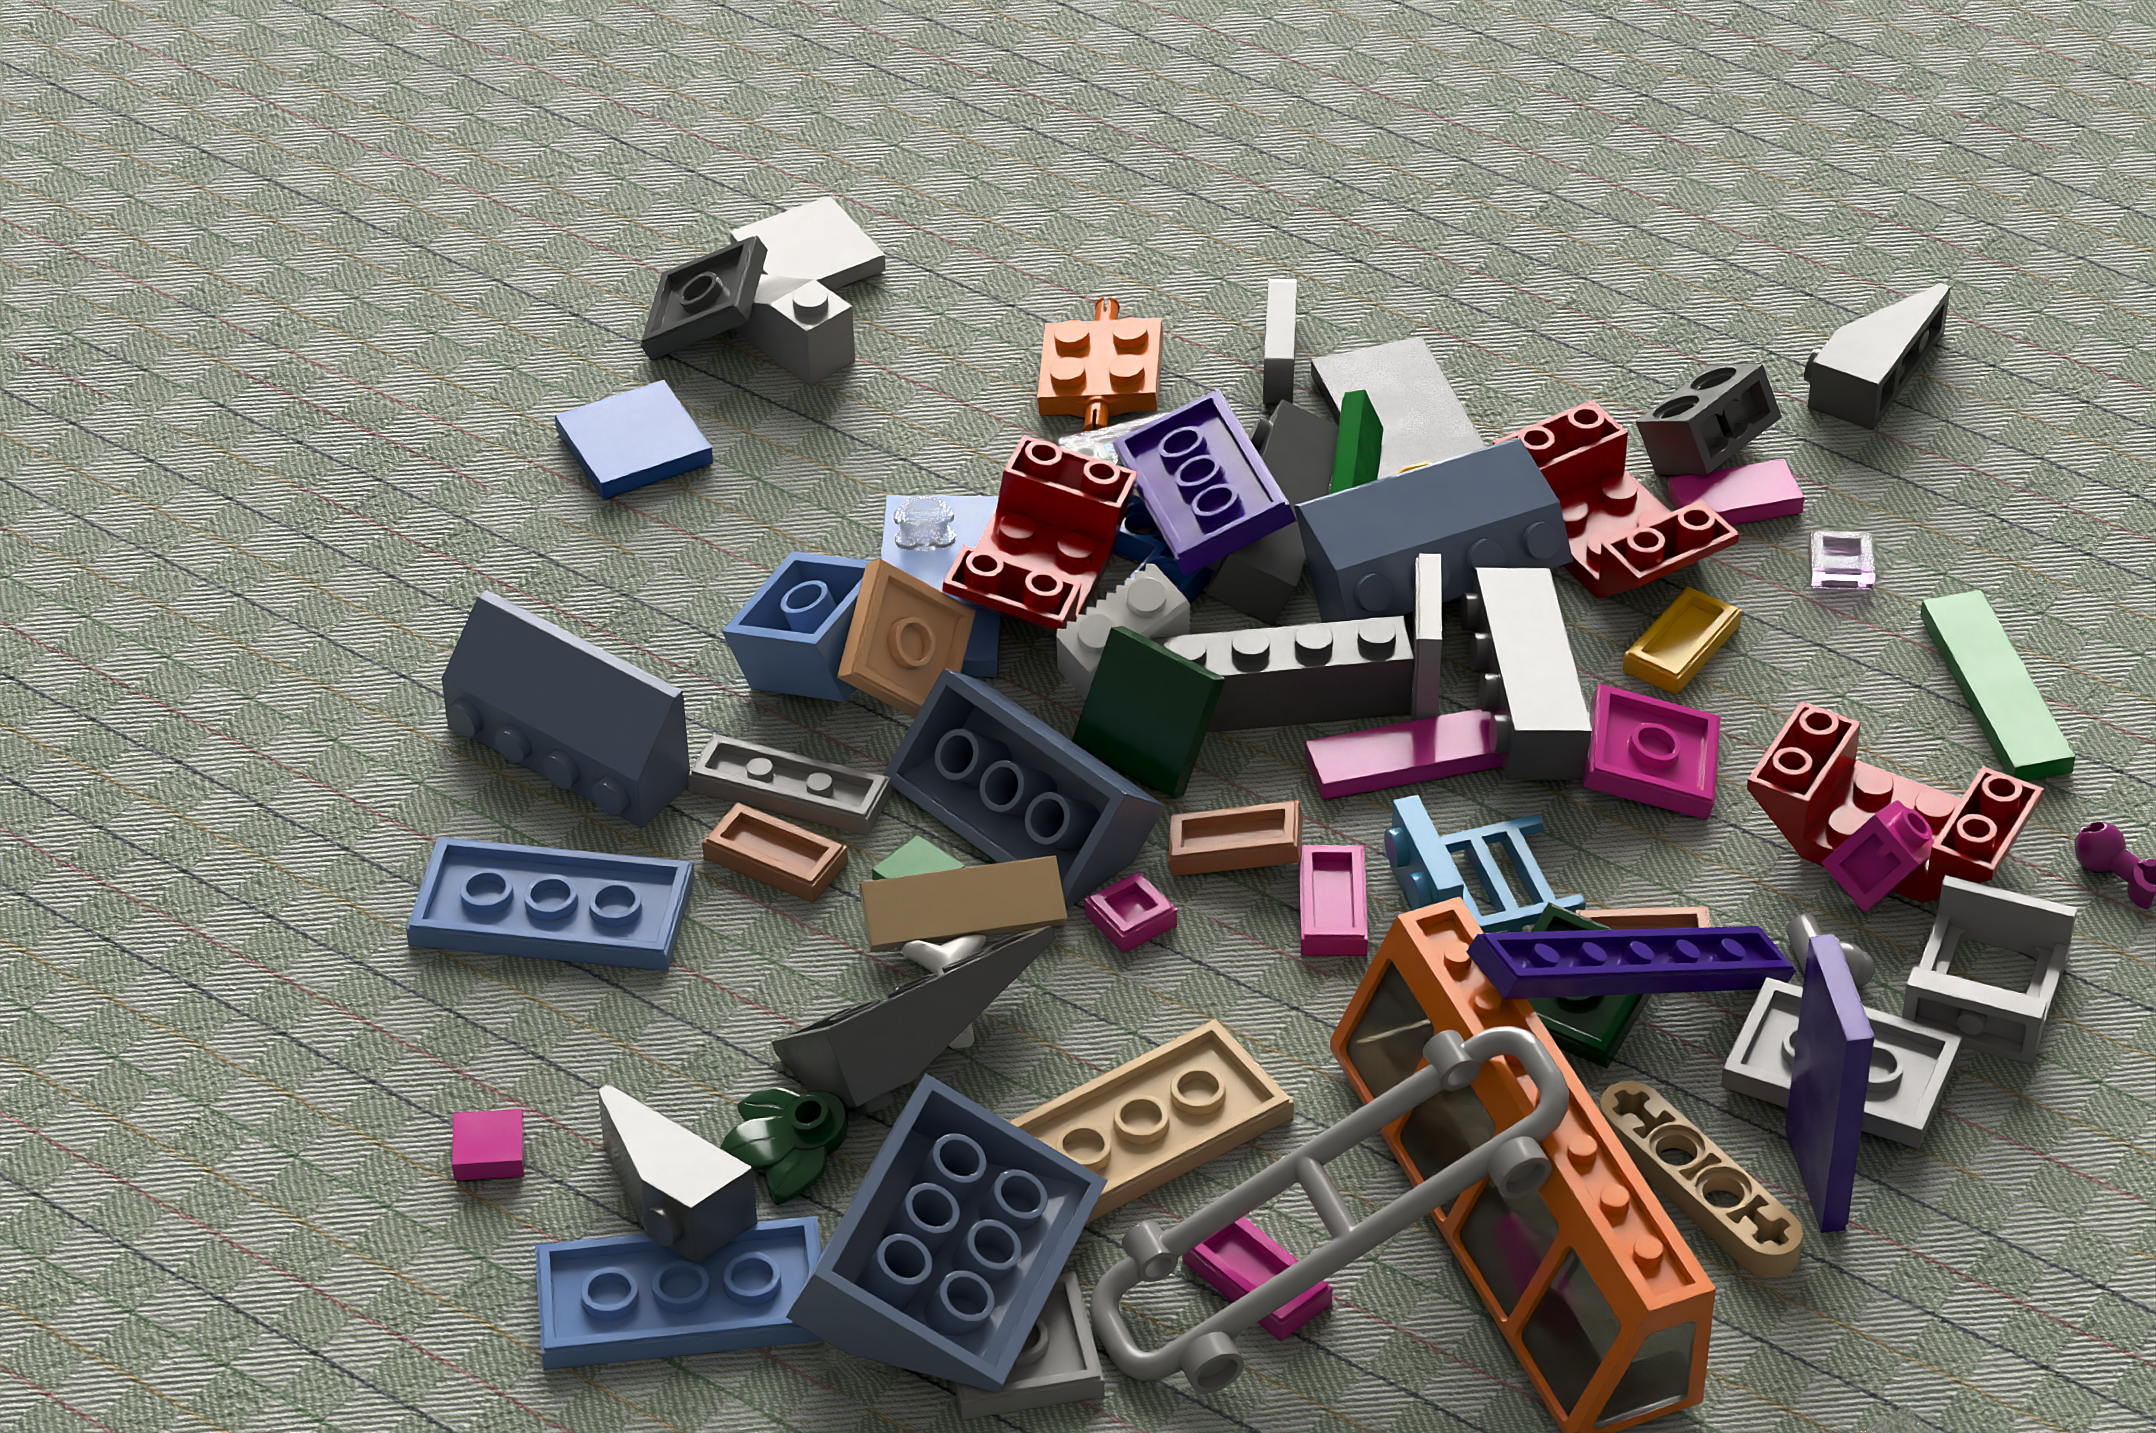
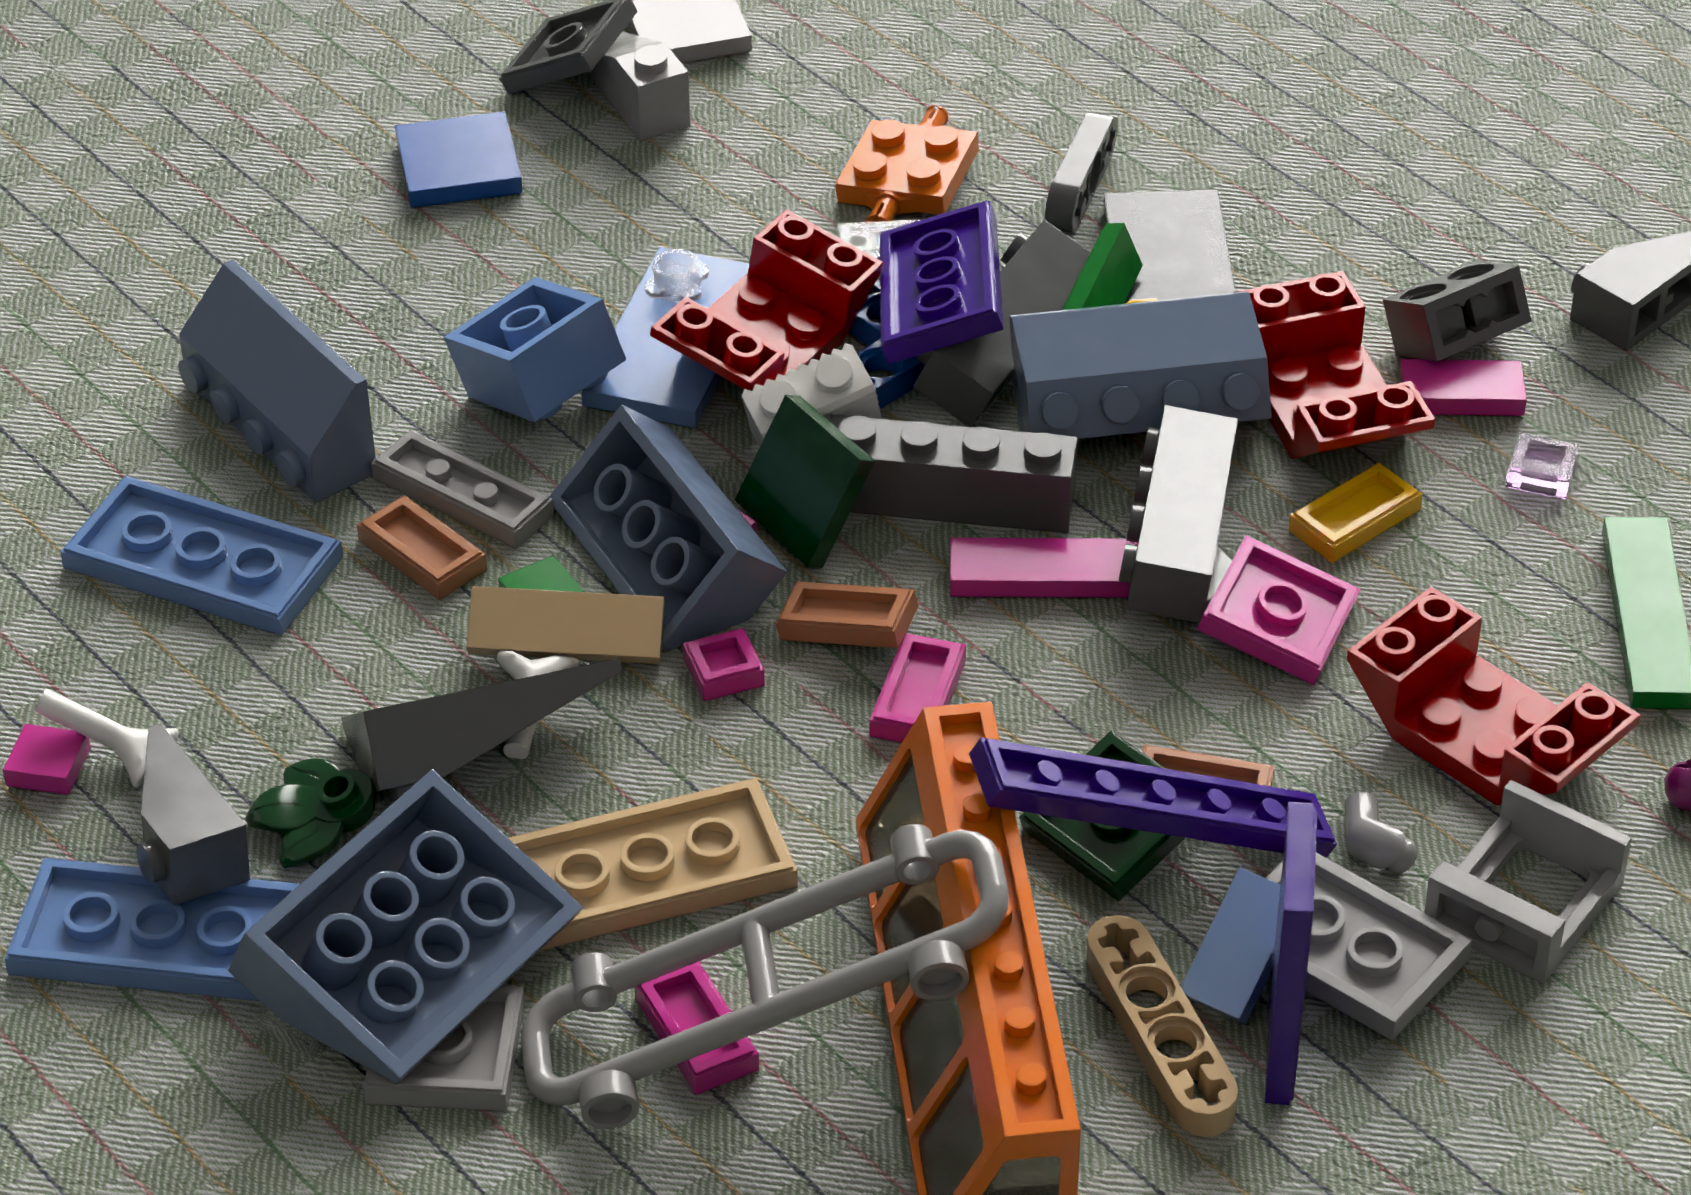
camera: 15 degrees right, 0 degrees up
(571, 1112) = (127, 742): none -> white piece
(903, 637) = (598, 367): light nougat tile -> none
(1426, 636) = (1093, 462): light grey tile -> none
(1430, 876) = (1019, 691): dark azure plate -> none
(1753, 1086) = (1236, 949): none -> light blue tile
(1881, 854) = (1457, 747): dark pink bracket -> none

